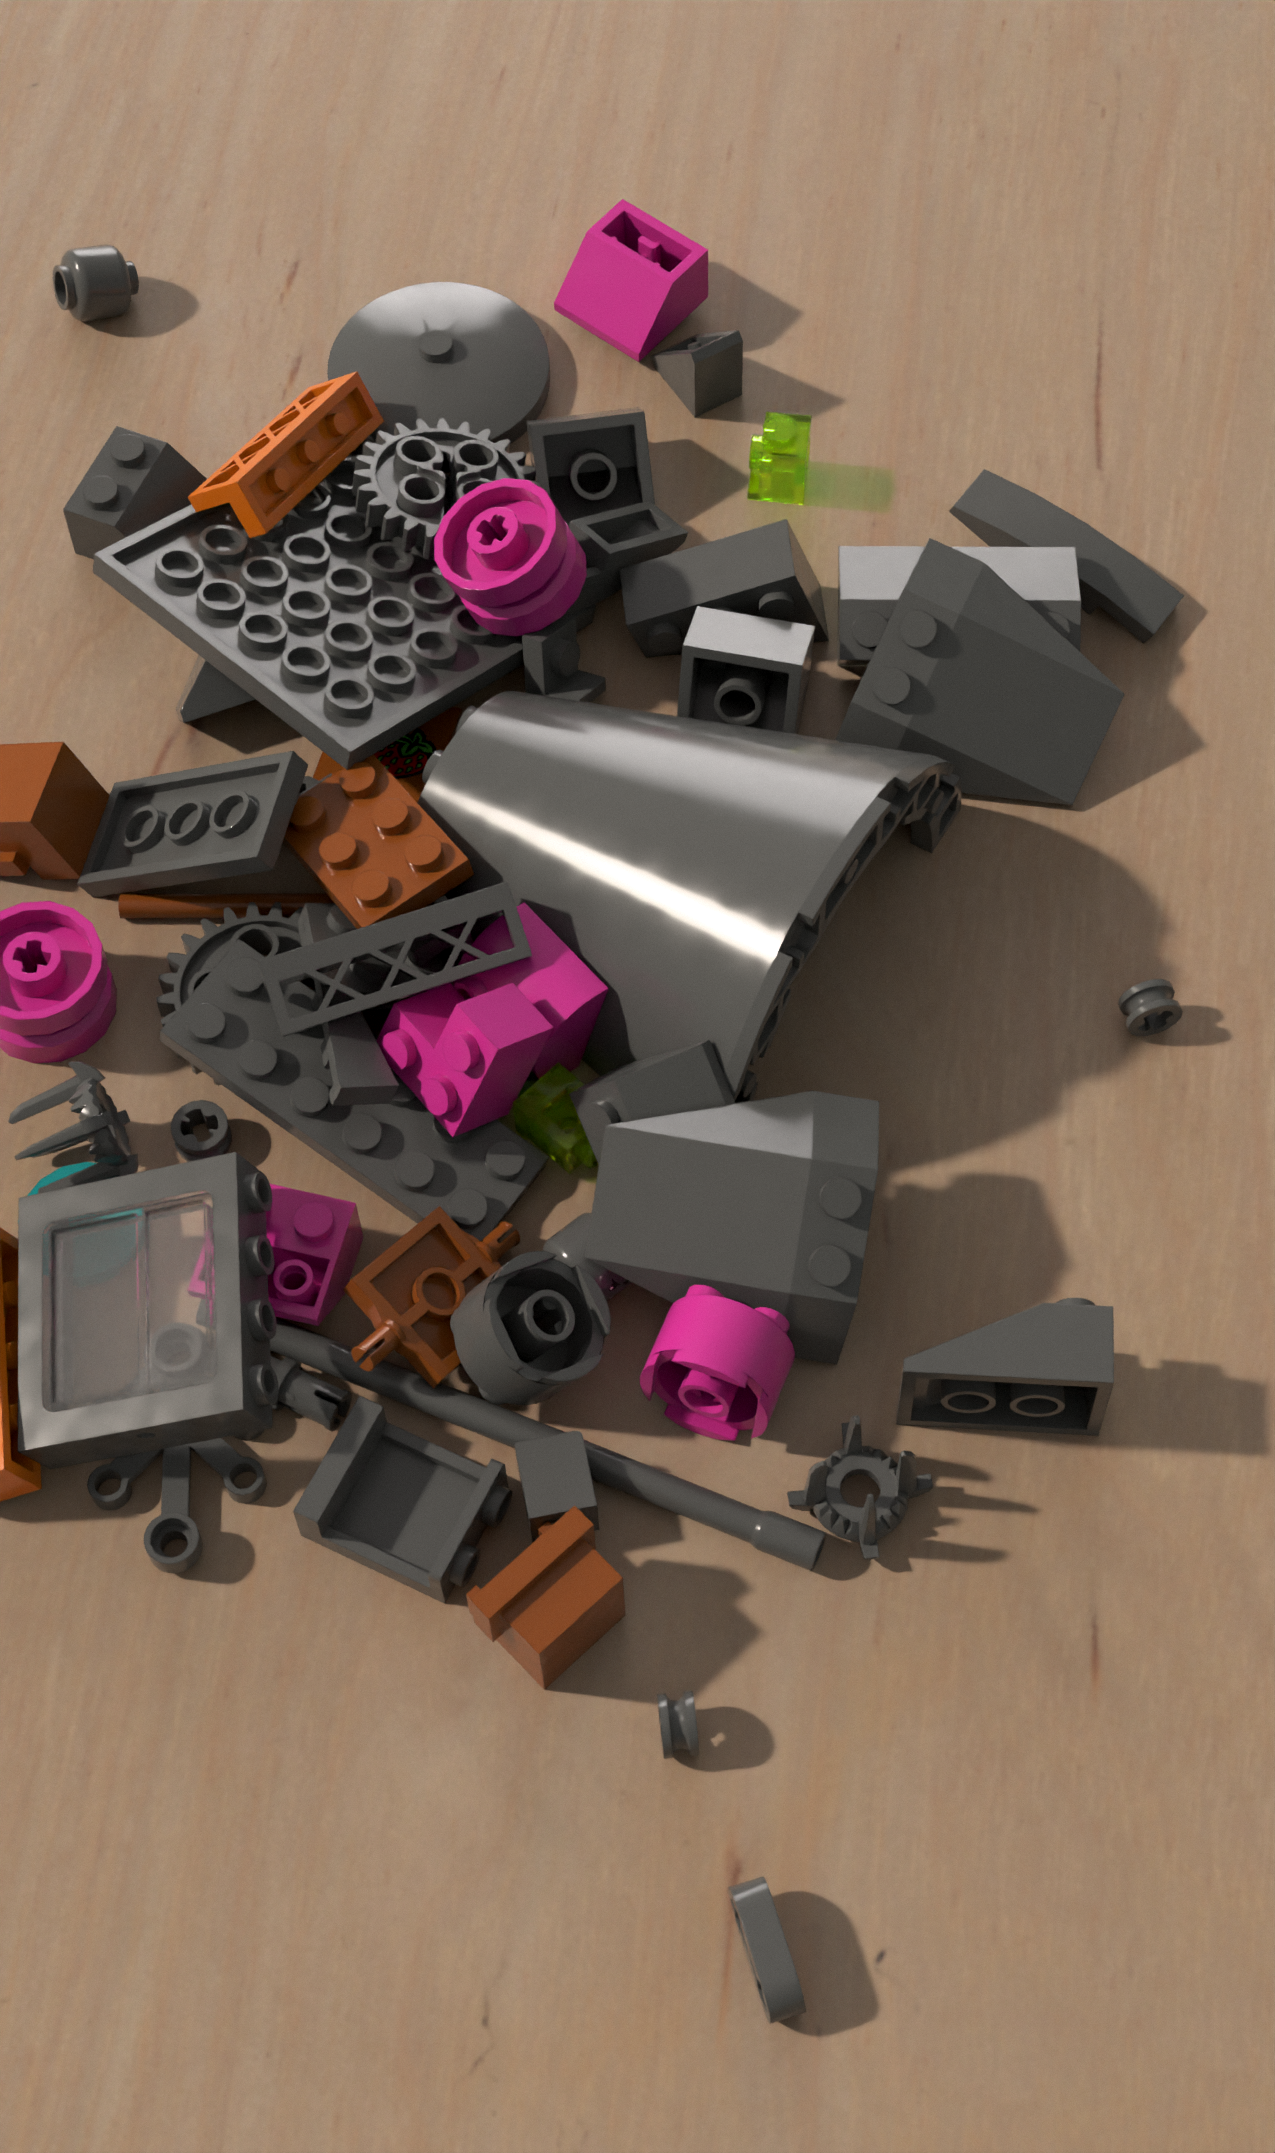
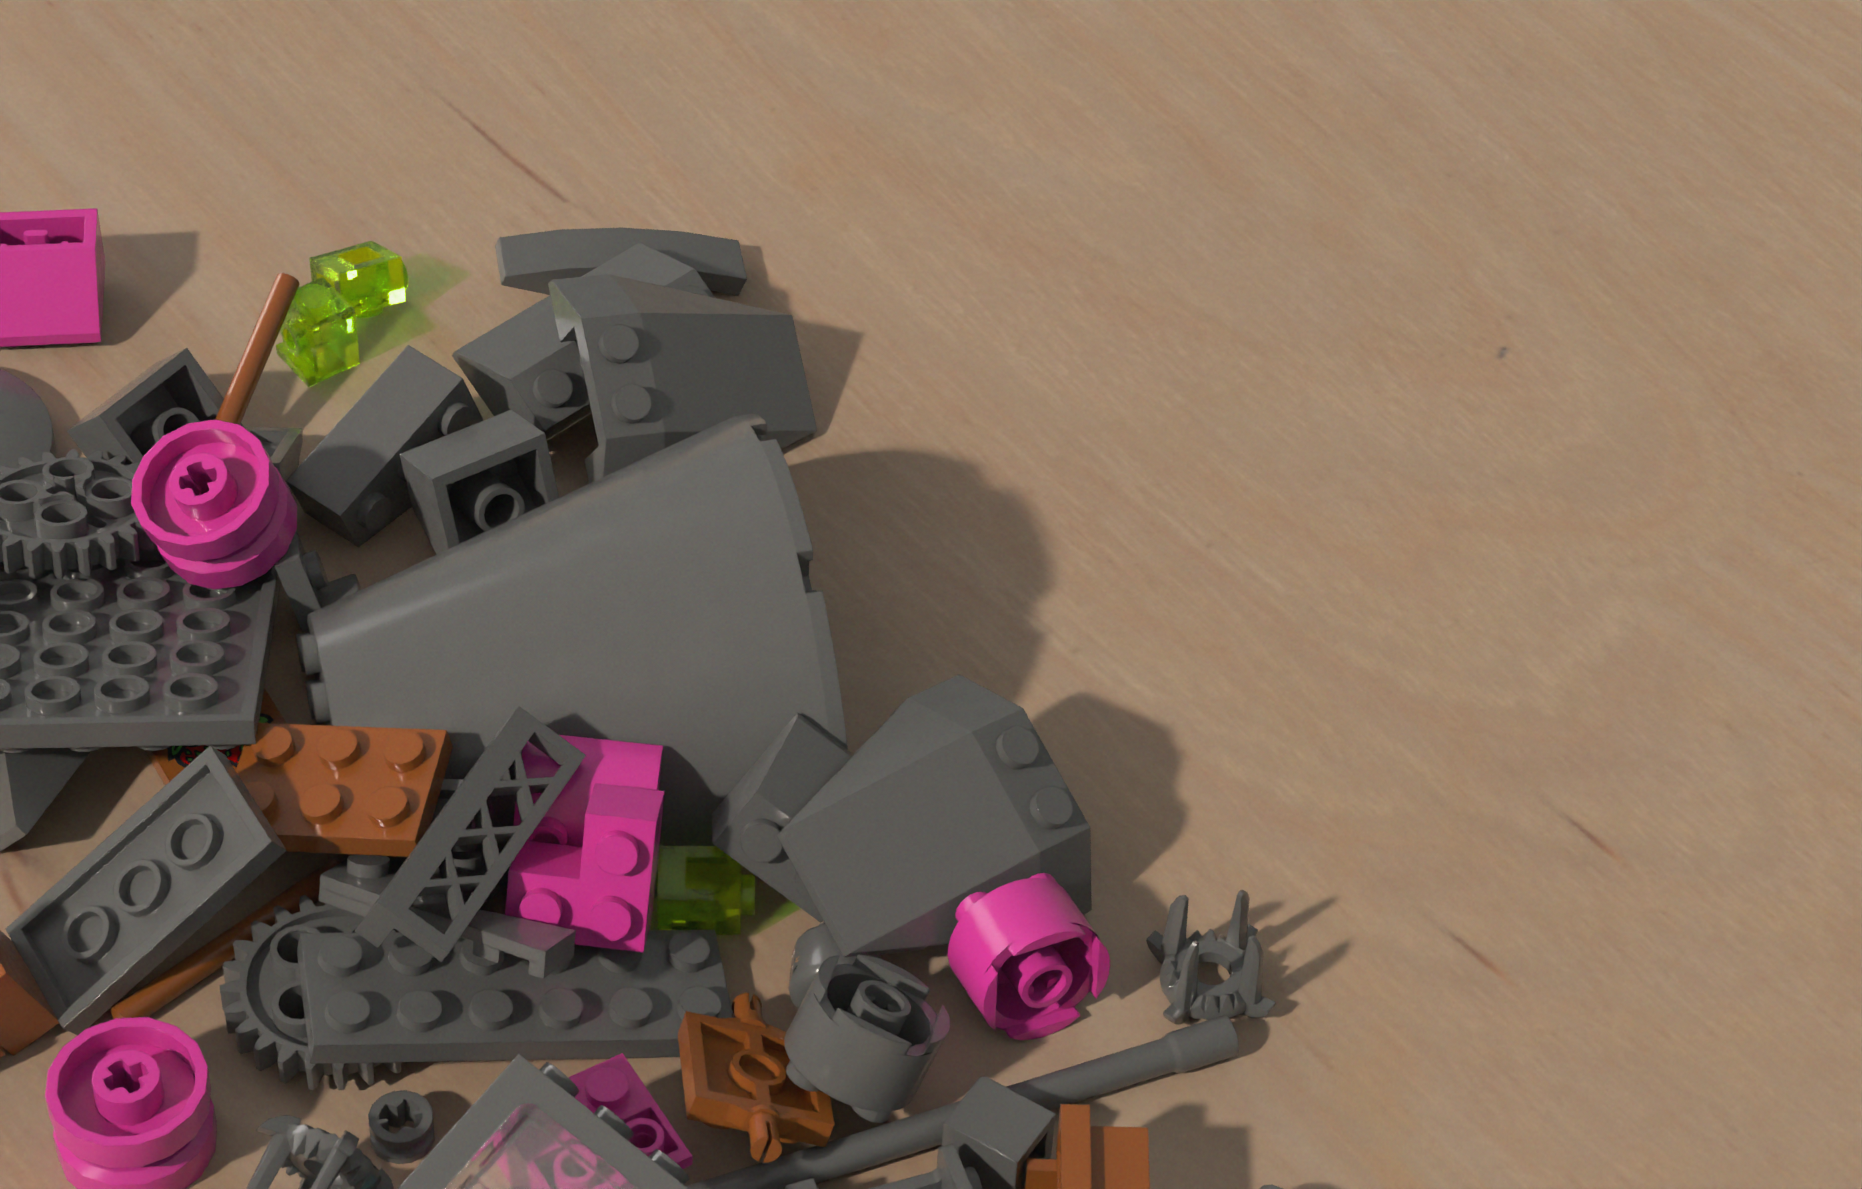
camera: 50 degrees left, 15 degrees down
(687, 457) = (258, 349): none -> dark orange bar
(703, 369) = (168, 309): dark grey slope -> none
(855, 435) = (364, 276): none -> clear neon green brick
(1020, 1374) = (1251, 796): dark grey slope -> none
(1150, 1007) = (1036, 517): dark grey bush -> none

